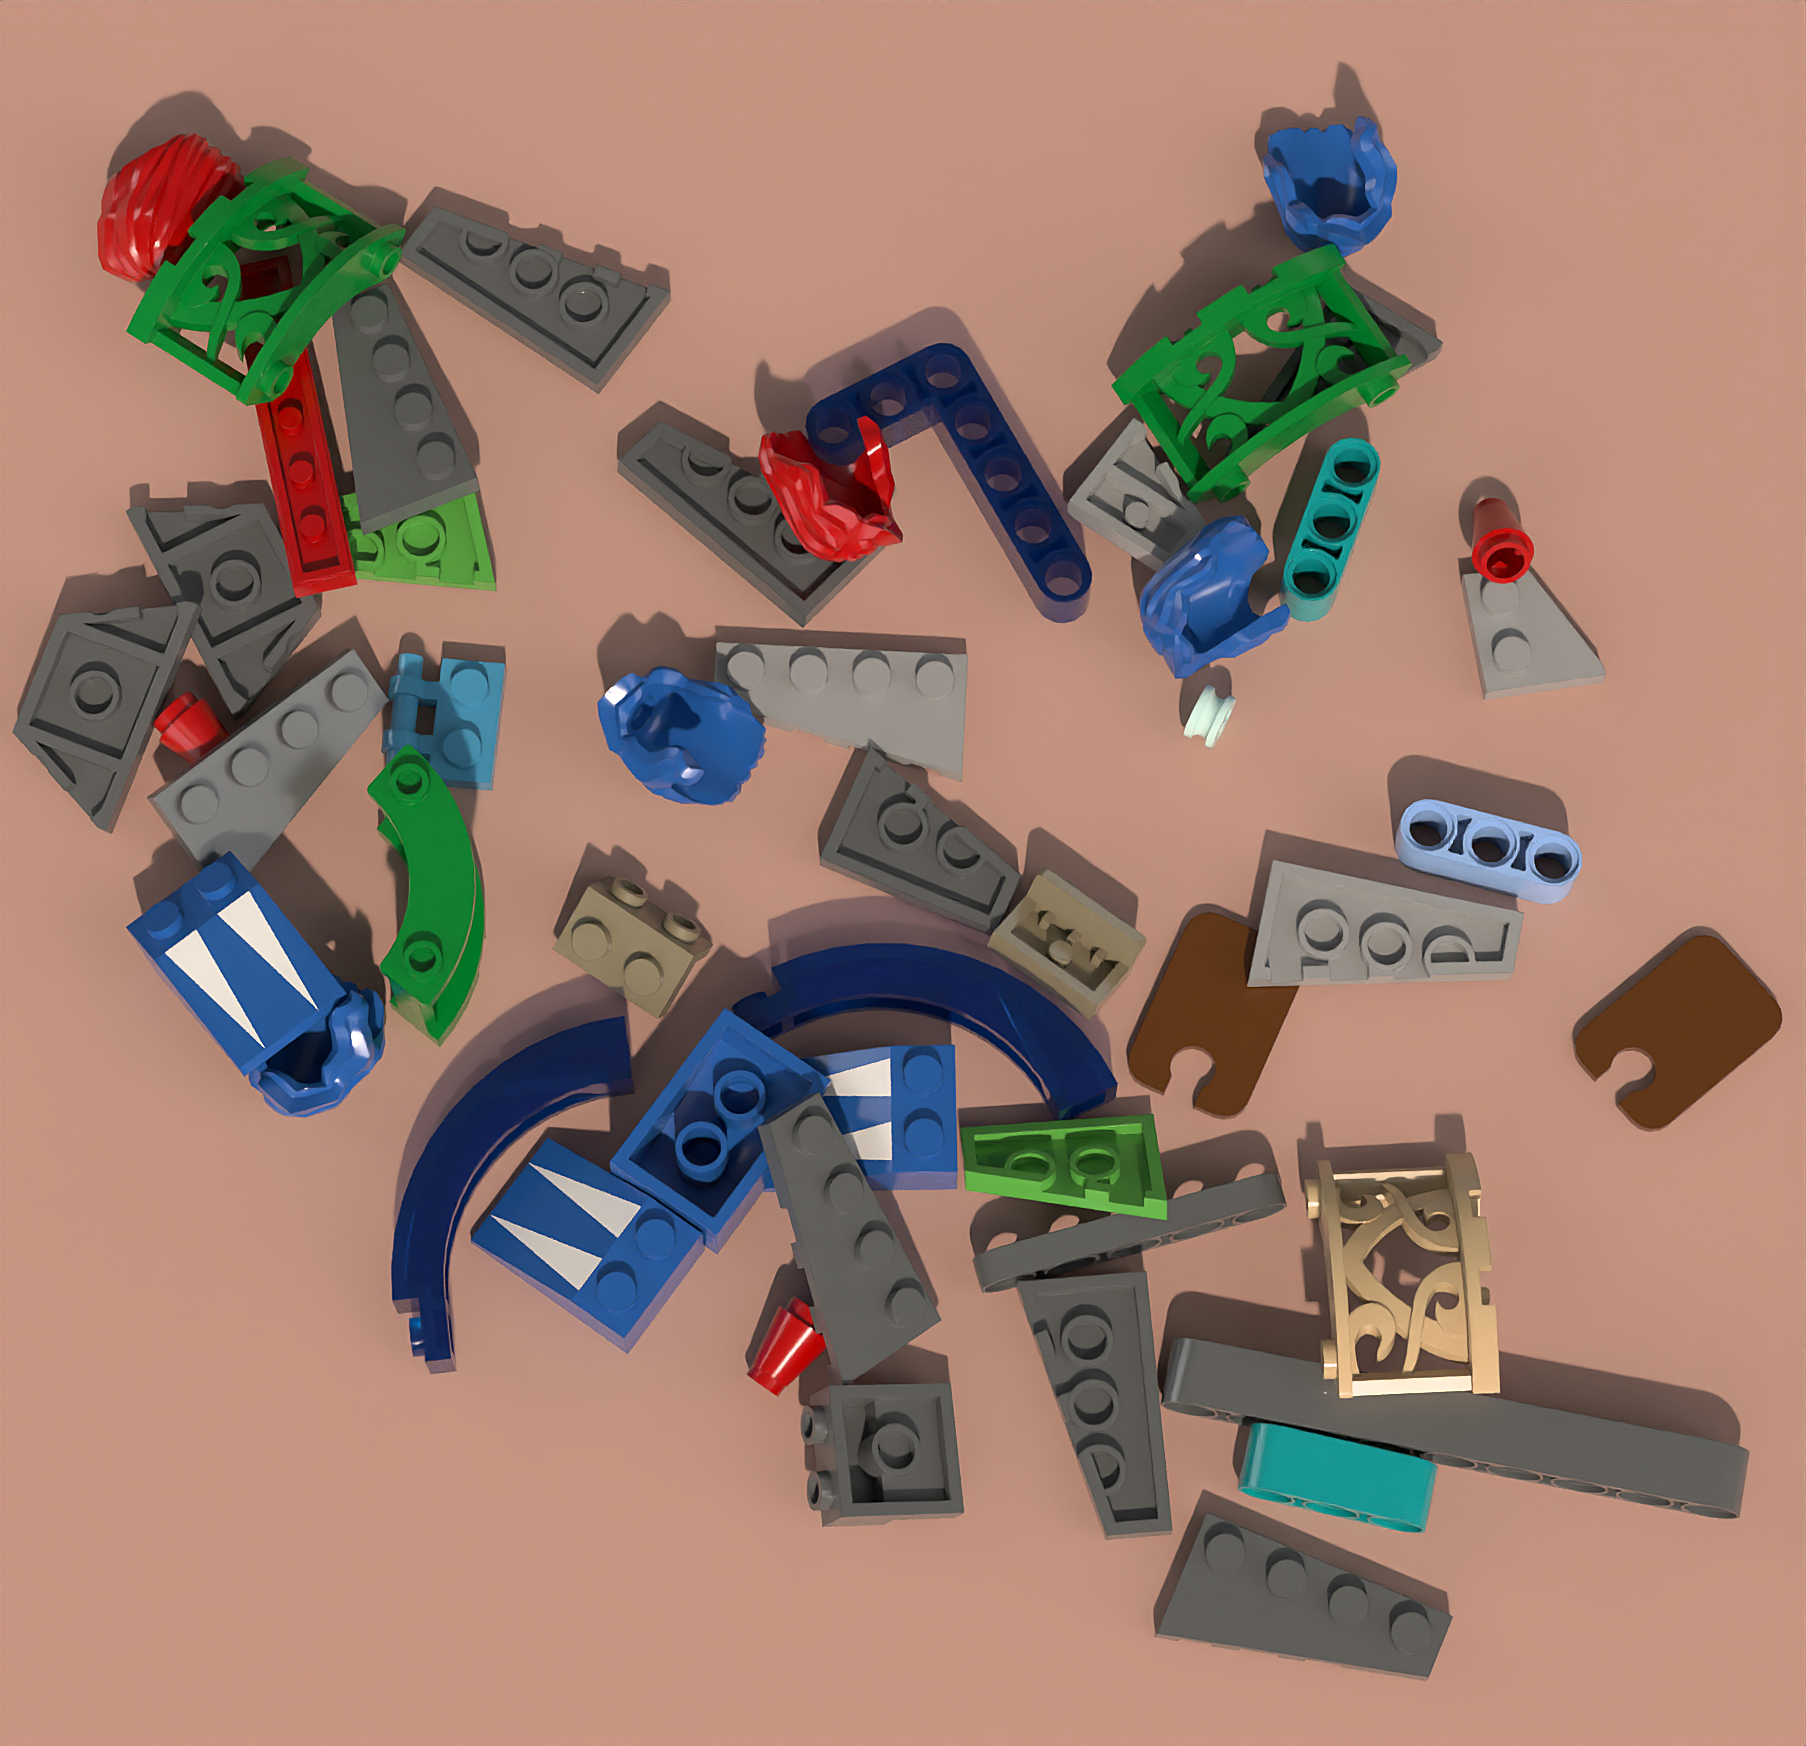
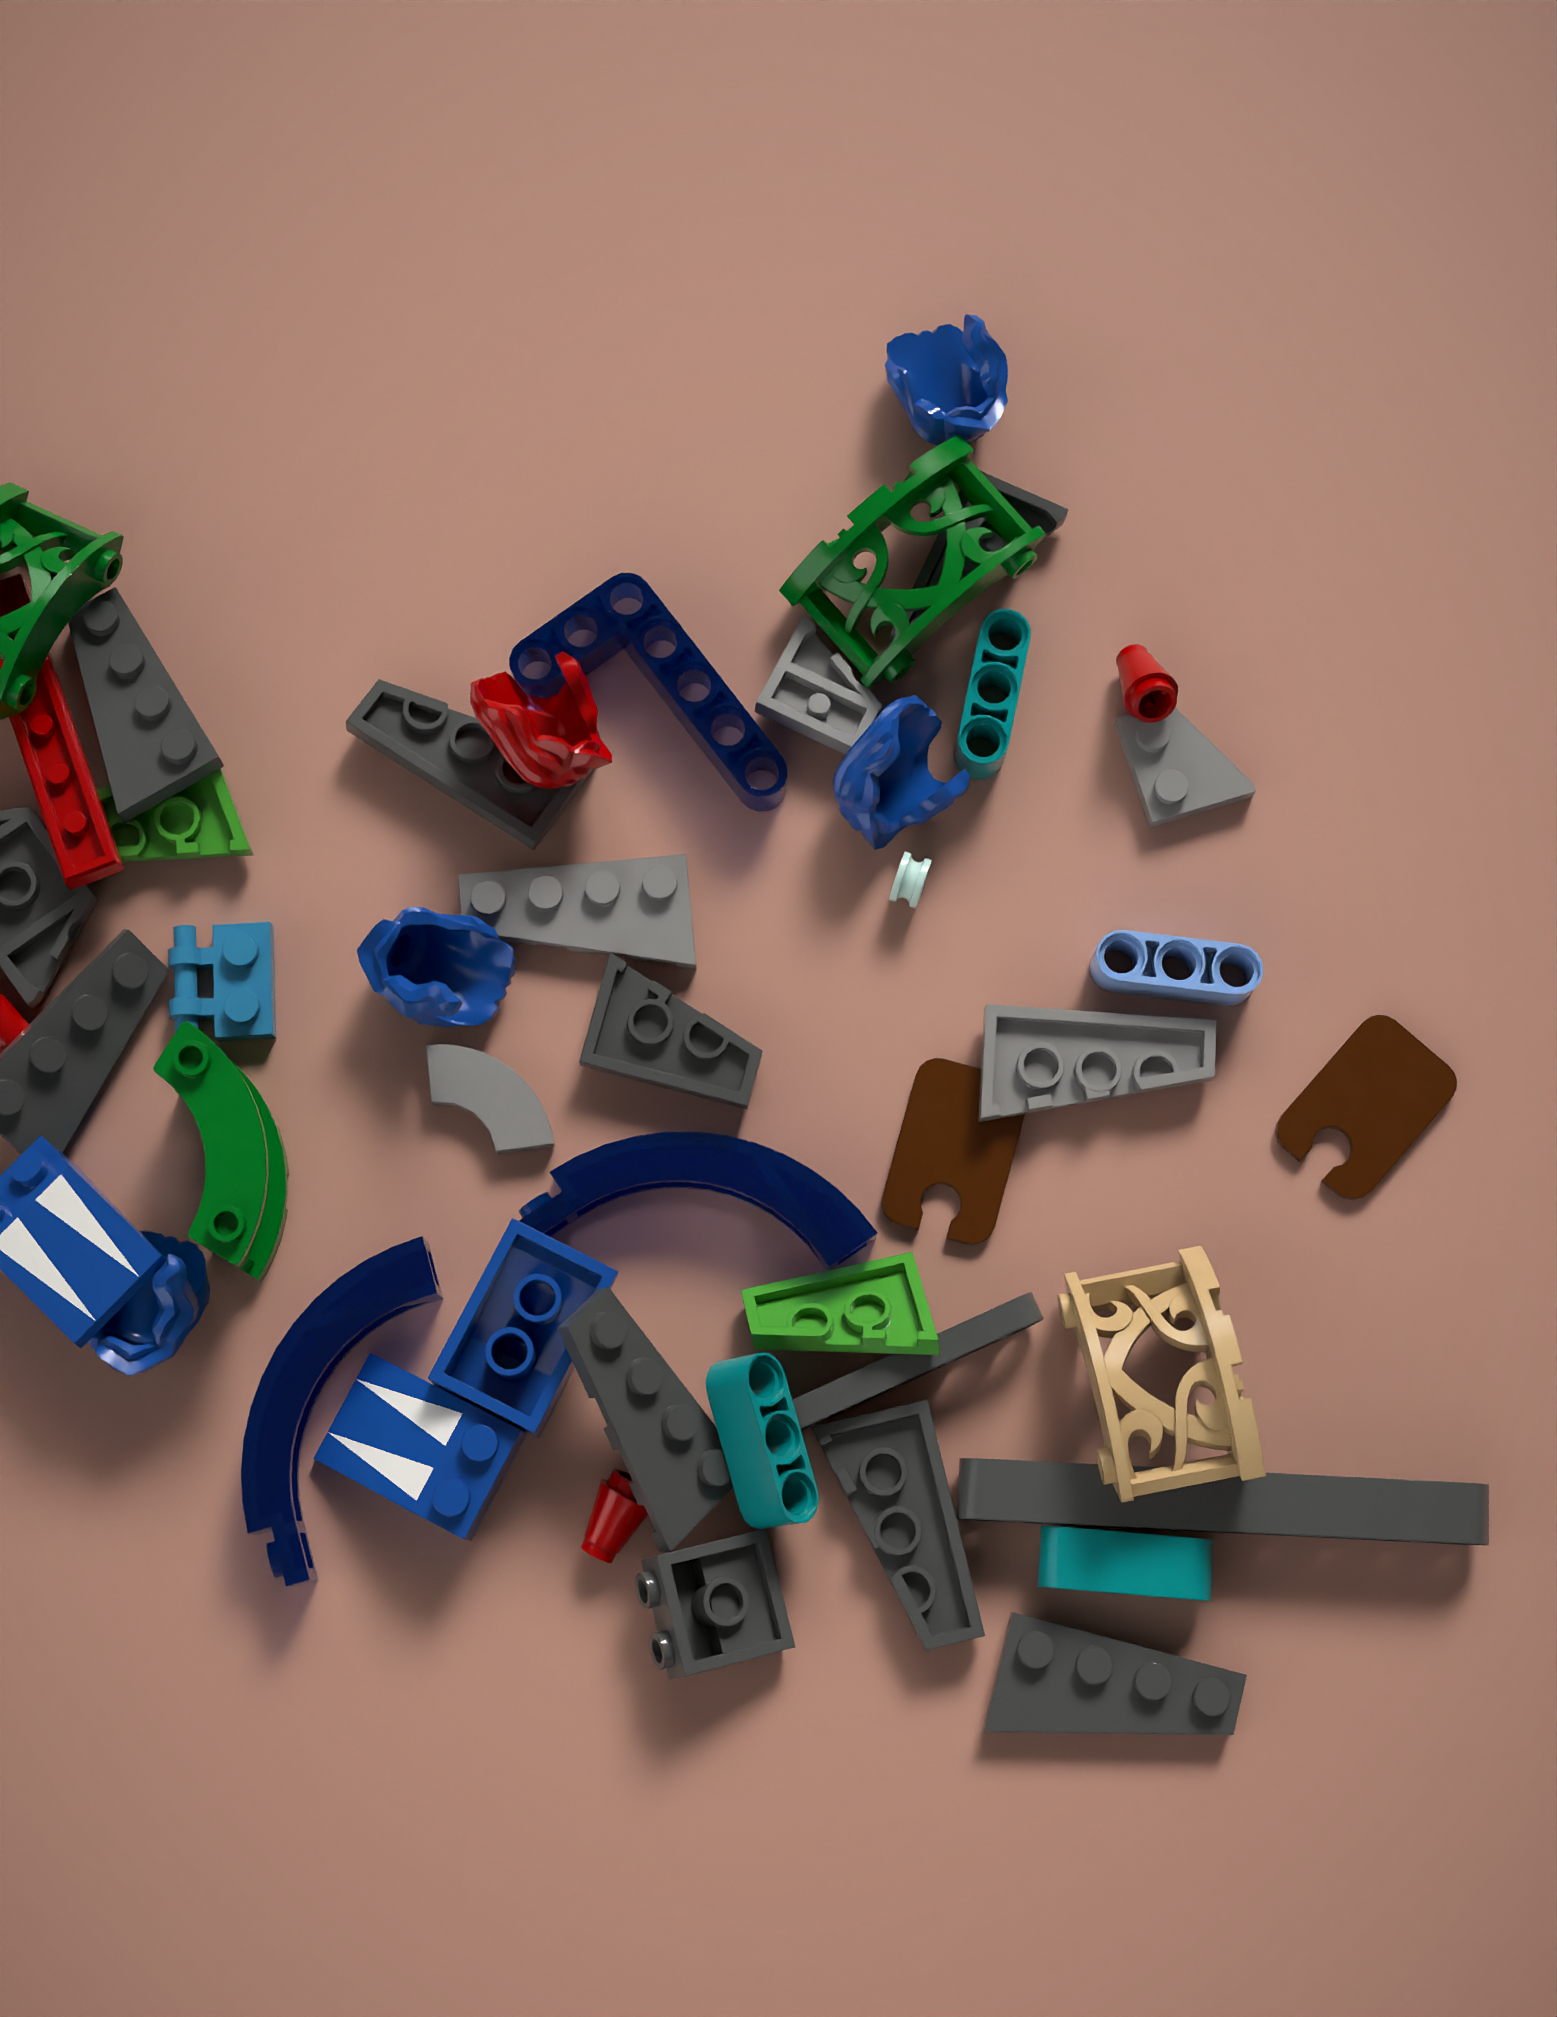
camera: 10 degrees left, 5 degrees up
(555, 306) = (263, 583): dark grey wing -> none
(632, 943) = (421, 1163): dark tan bracket -> none
(717, 880) = (492, 1094): none -> light grey tile
(895, 1113) = (678, 1287): blue slope -> none
(960, 1285) = (762, 1441): none -> teal beam
(1068, 943) = (813, 1108): dark tan bracket -> none

